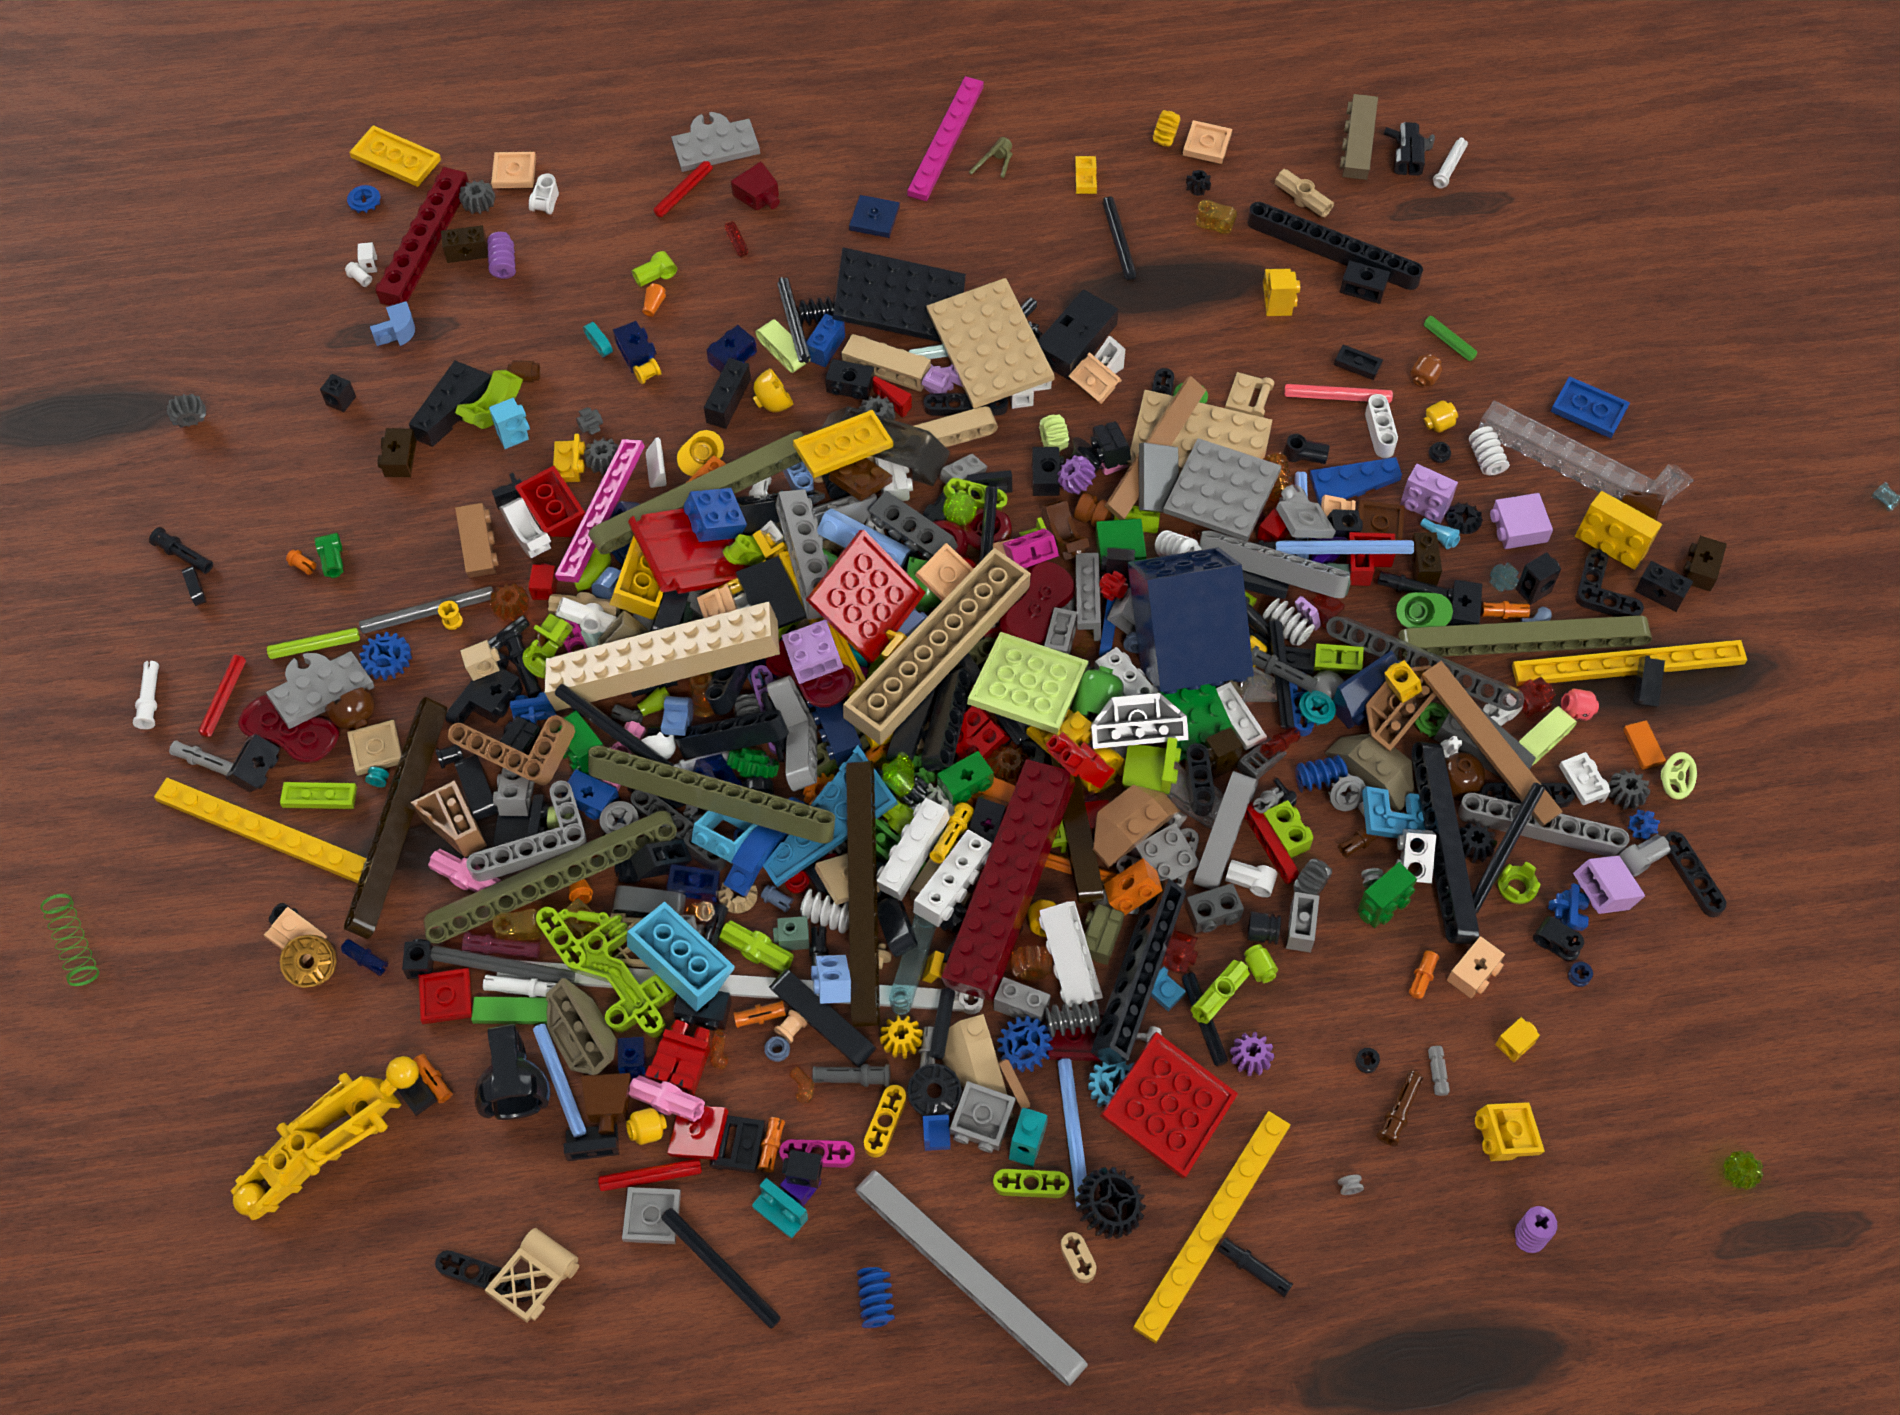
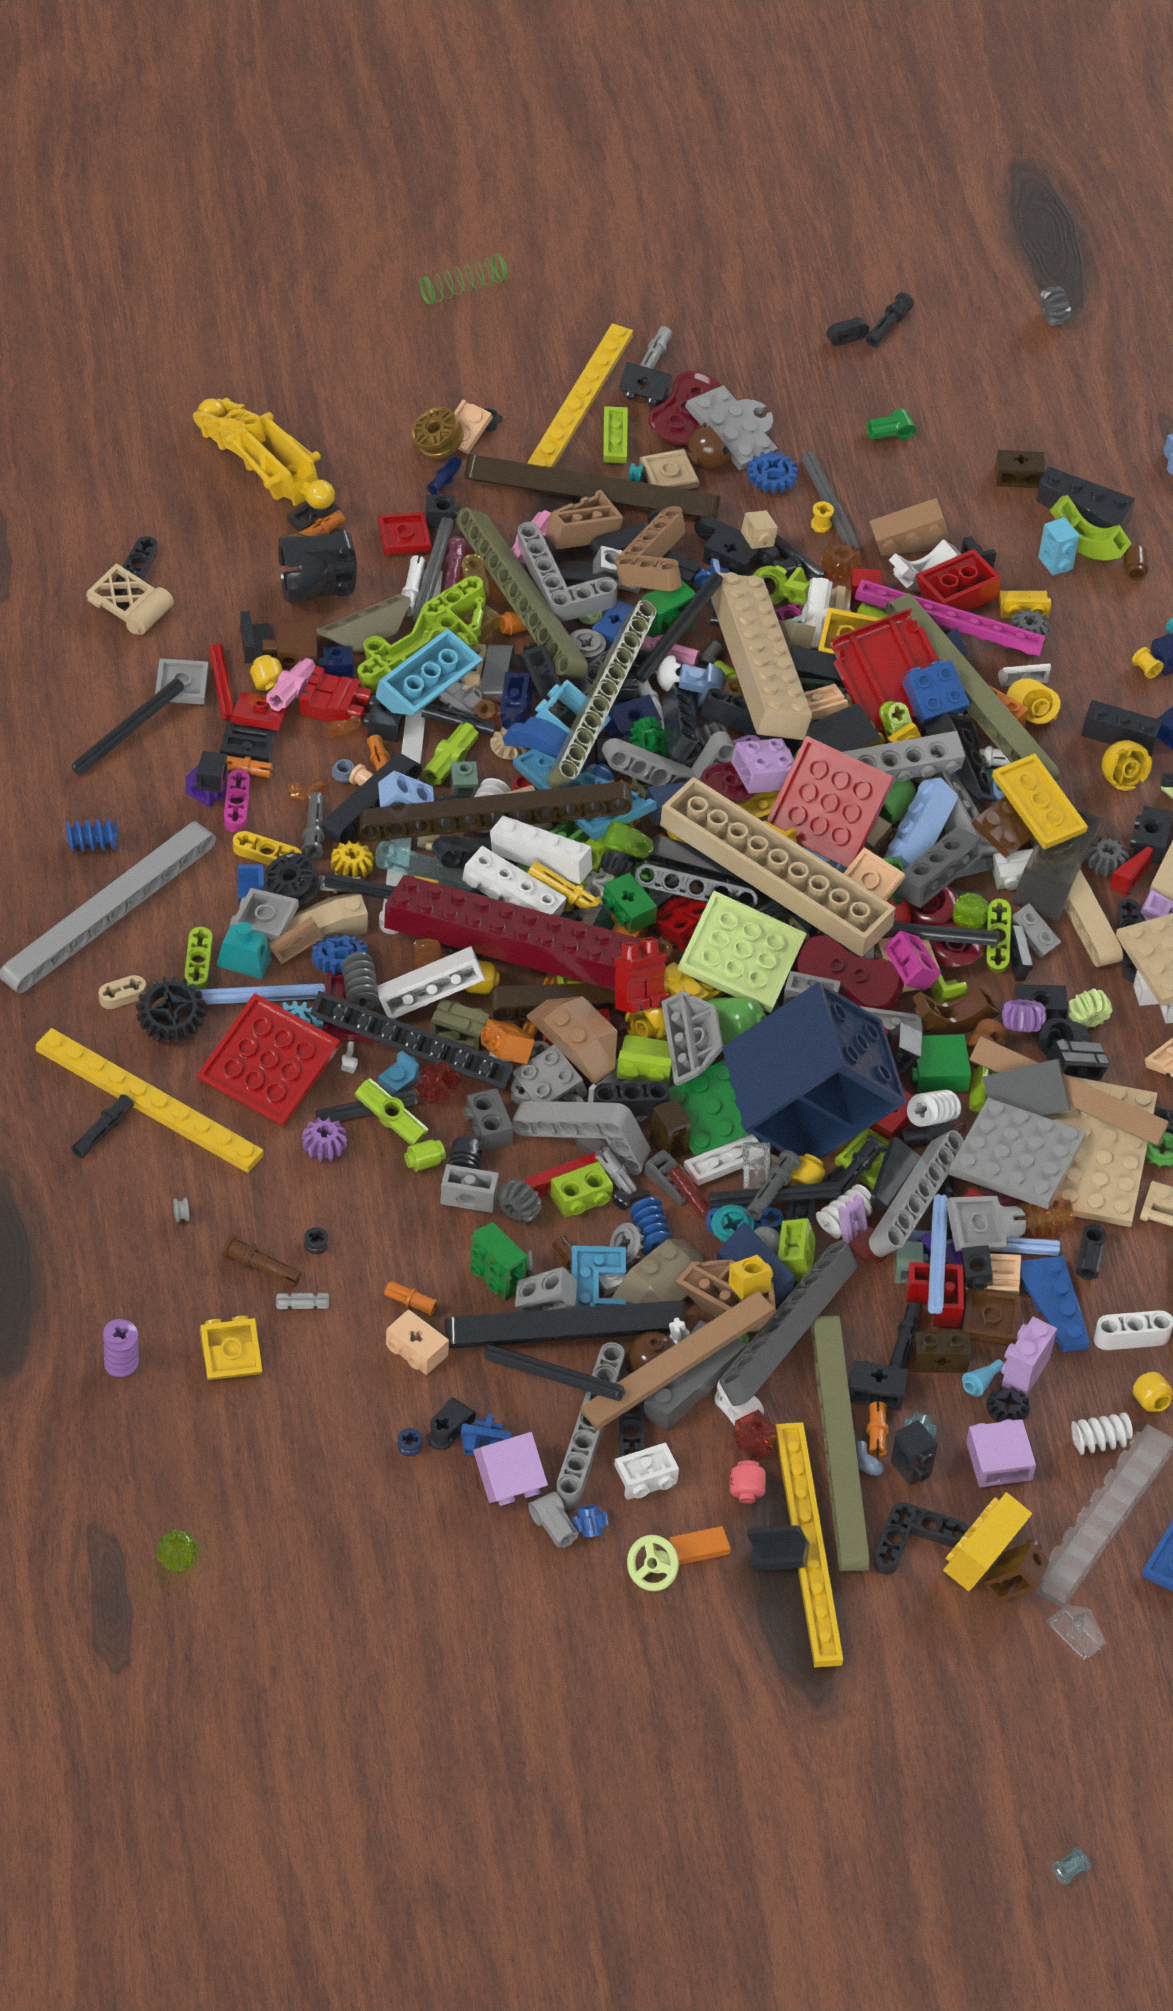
camera: 85 degrees right, 10 degrees down
(146, 704) = (712, 309): white pin -> none
(222, 695) = (725, 362): red axle -> none
(296, 559) = (884, 402): orange pin -> none
(313, 643) = (787, 422): lime axle -> none
(338, 392) = (1091, 418): black brick -> none
(509, 1010) = (389, 575): bright green tile -> none
(559, 1080) = (319, 614): light blue axle -> none
(589, 420) = (1073, 615): dark grey gear -> none
(776, 898) = (505, 769): sand blue pin -> none
(780, 1209) = (175, 774): teal bracket -> none
(1020, 1000) = (388, 951): light grey brick -> none
(1258, 879) = (524, 1159): white piece -> none
(1424, 610) = (864, 1335): bright green piece -> none
(1440, 452) = (1102, 1389): black plate -> none
(1479, 835) = (569, 1355): black gear -> none
(1517, 1039) = (333, 1369): yellow brick -> none
(1524, 873) = (525, 1386): lime piece -> none
(1548, 733) = (705, 1443): yellowish green beam -> none
(1628, 789) = (637, 1515): dark grey gear -> none
(1663, 586) = (916, 1590): black brick -> none
(1697, 872) = (533, 1571): black beam -> none
(1704, 562) = (954, 1641): dark brown brick -> none

